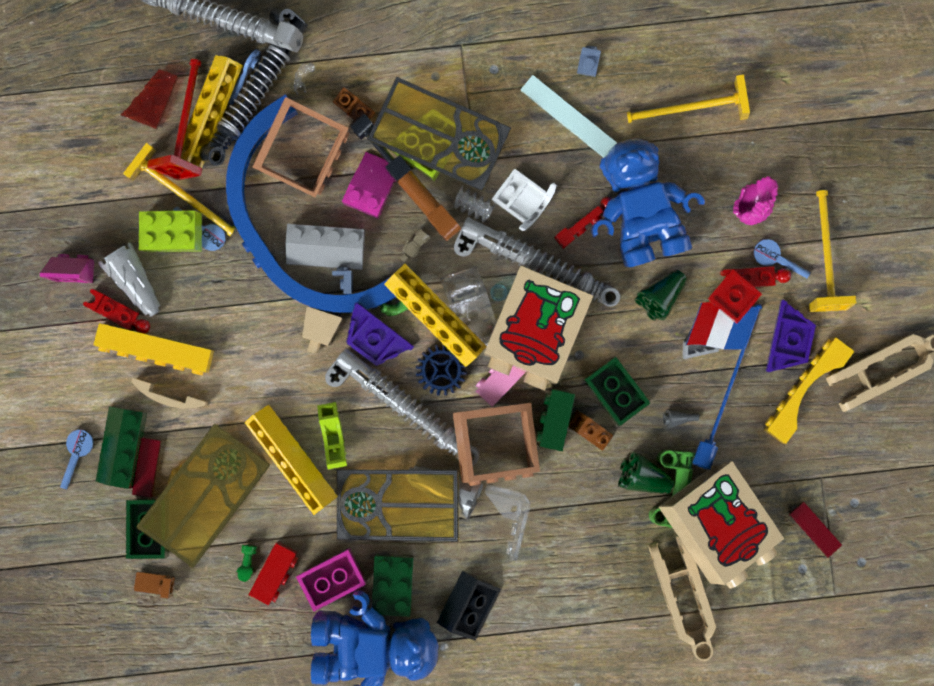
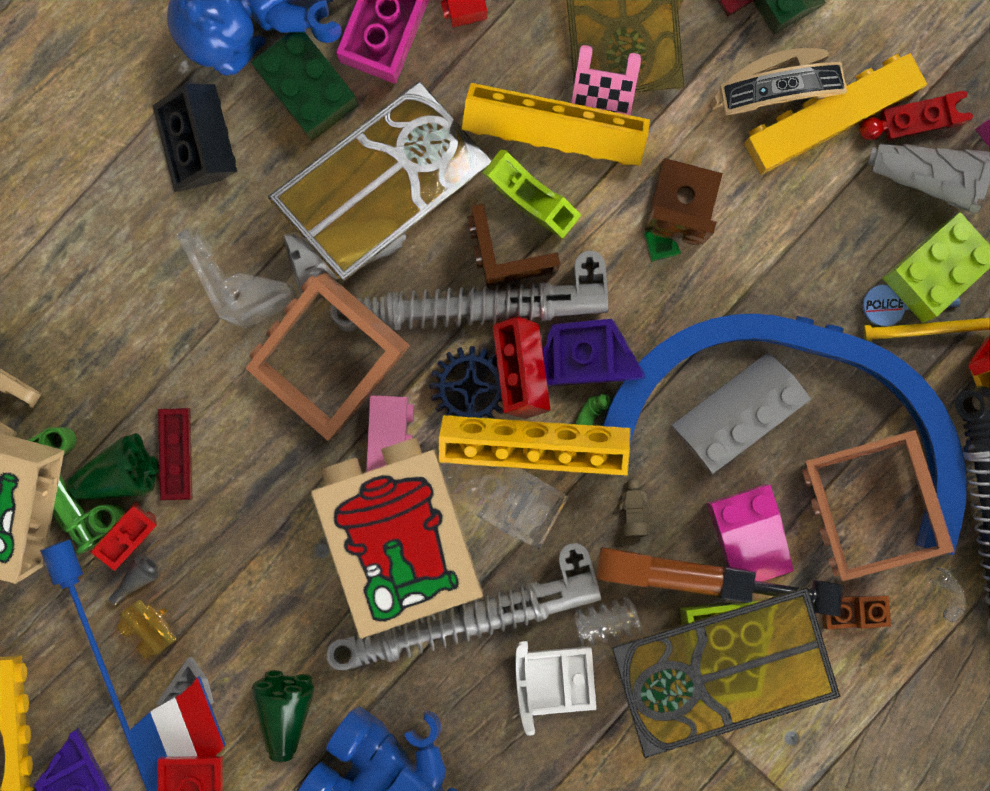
camera: 140 degrees right, 0 degrees up
(168, 381) = (783, 85): none -> slope
(252, 455) = (603, 88): none -> bright pink flag
(274, 368) = (681, 220): none -> reddish brown bracket
(292, 358) = (660, 247): none -> green tile
(320, 328) = (659, 309): tan torso -> none
(347, 283) = (675, 392): sand blue bracket -> none
(379, 426) = (507, 271): none -> reddish brown bracket
(409, 357) = (521, 368): none -> red brick
(492, 292) = (490, 547): clear light blue bush -> none
(555, 420) = (279, 446): dark green brick -> none
(566, 236) = (460, 681): red plate -> none
(590, 430) = (230, 470): dark orange bracket -> none
(609, 461) = (175, 454): none -> dark red tile
(617, 391) = (235, 546): dark green brick -> none
(665, 441) = (124, 536): none -> red hinge
(690, 390) = (148, 626): none -> clear yellow hips

